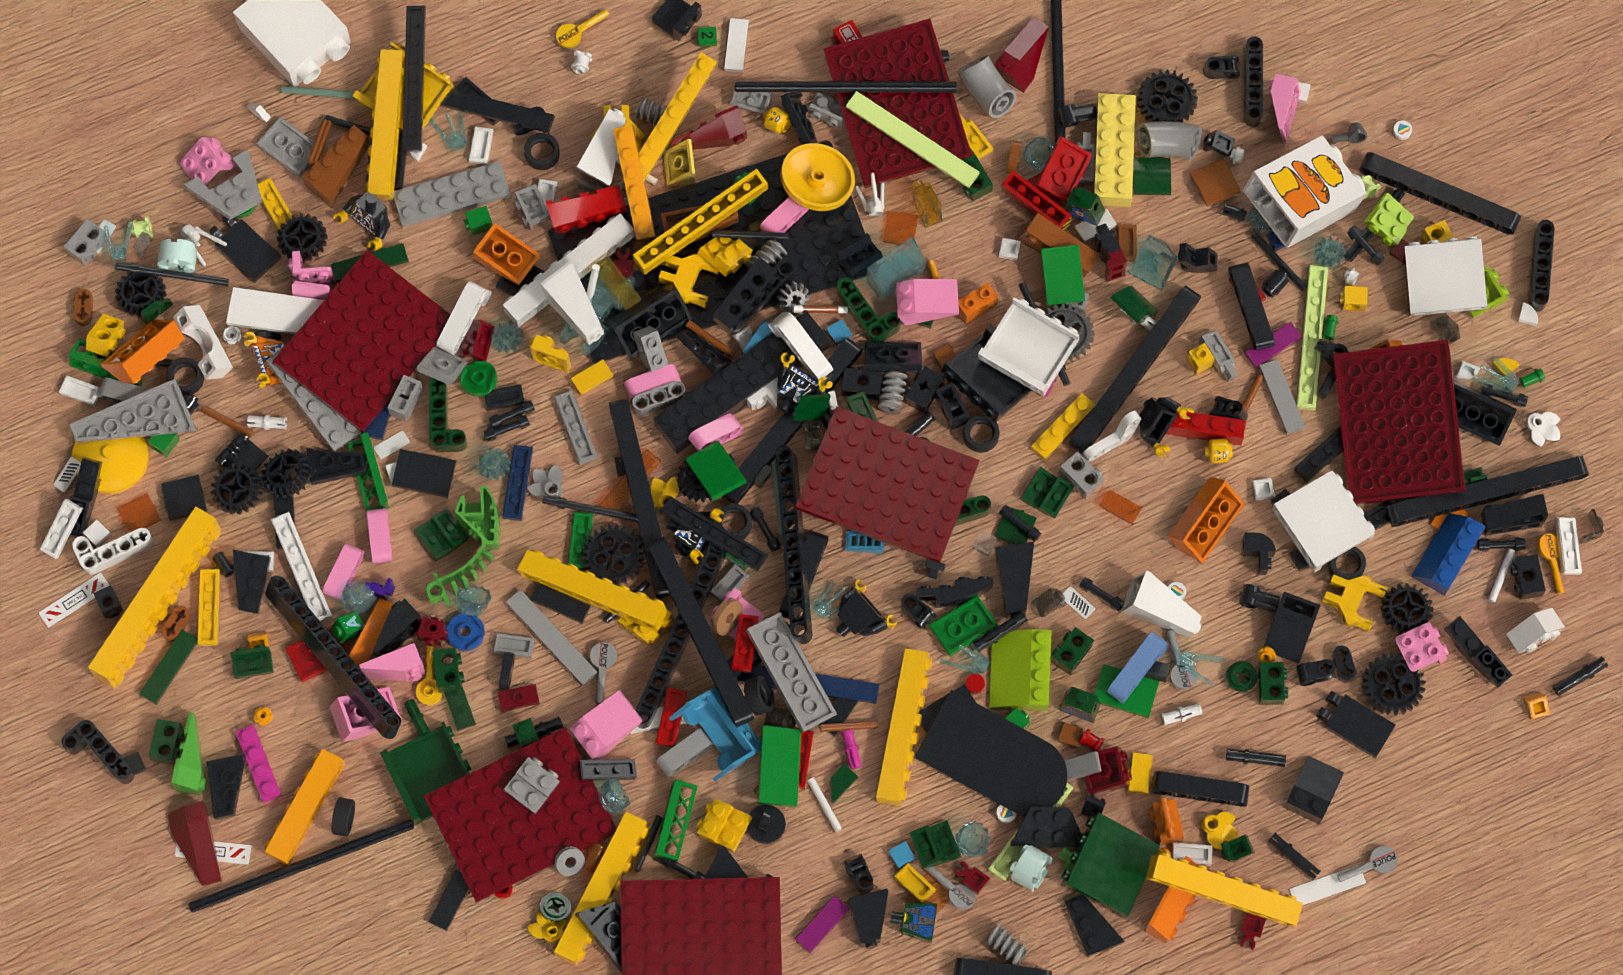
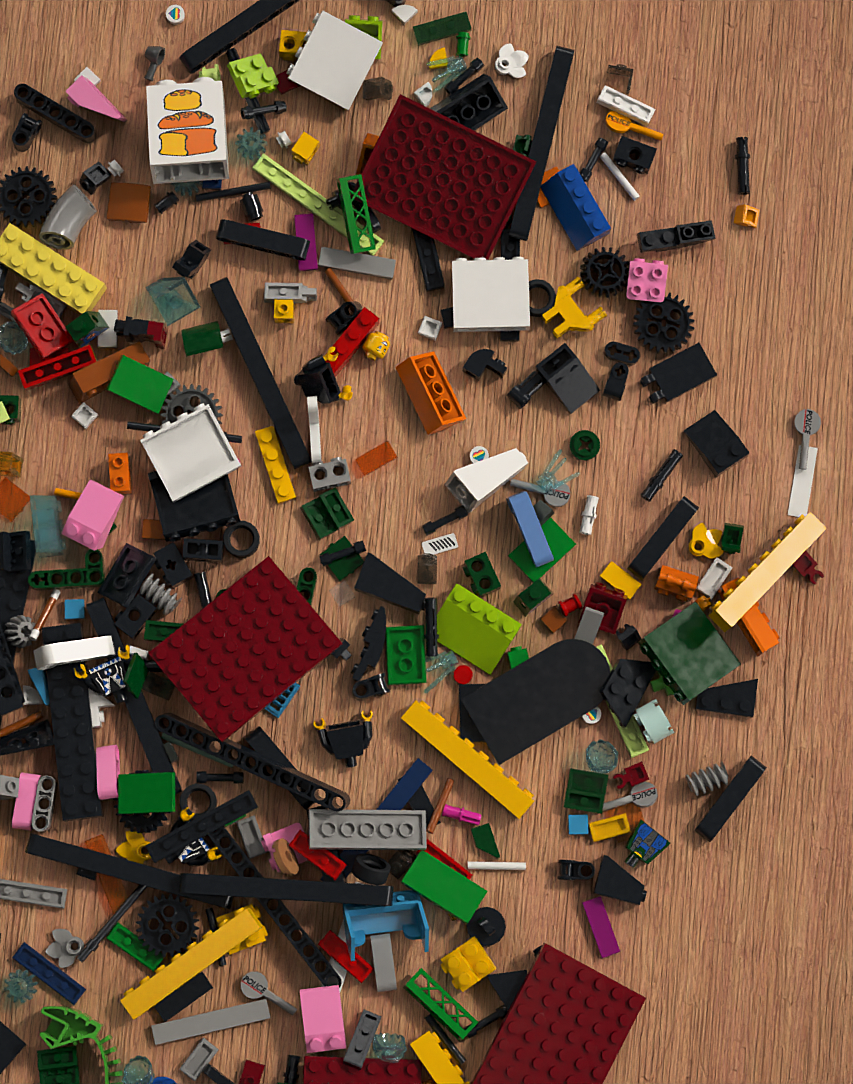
camera: 65 degrees left, 10 degrees up
(823, 607) = (322, 766): clear light blue plant -> none
(1128, 241) = (137, 309): dark orange tile -> none
(1152, 176) = (91, 252): dark green slope -> none
(1266, 651) = (576, 411): light orange plate -> none
(1267, 683) = (603, 428): dark green brick -> none
(1294, 856) = (755, 497): black pin -> none
(1328, 352) = (348, 214): none -> green fence
(1330, 327) = (318, 184): green pin -> none
(1514, 515) = (576, 133): black wedge -> none
(1535, 353) = (442, 28): none -> clear green tile
(1536, 628) = (686, 176): white brick -> none

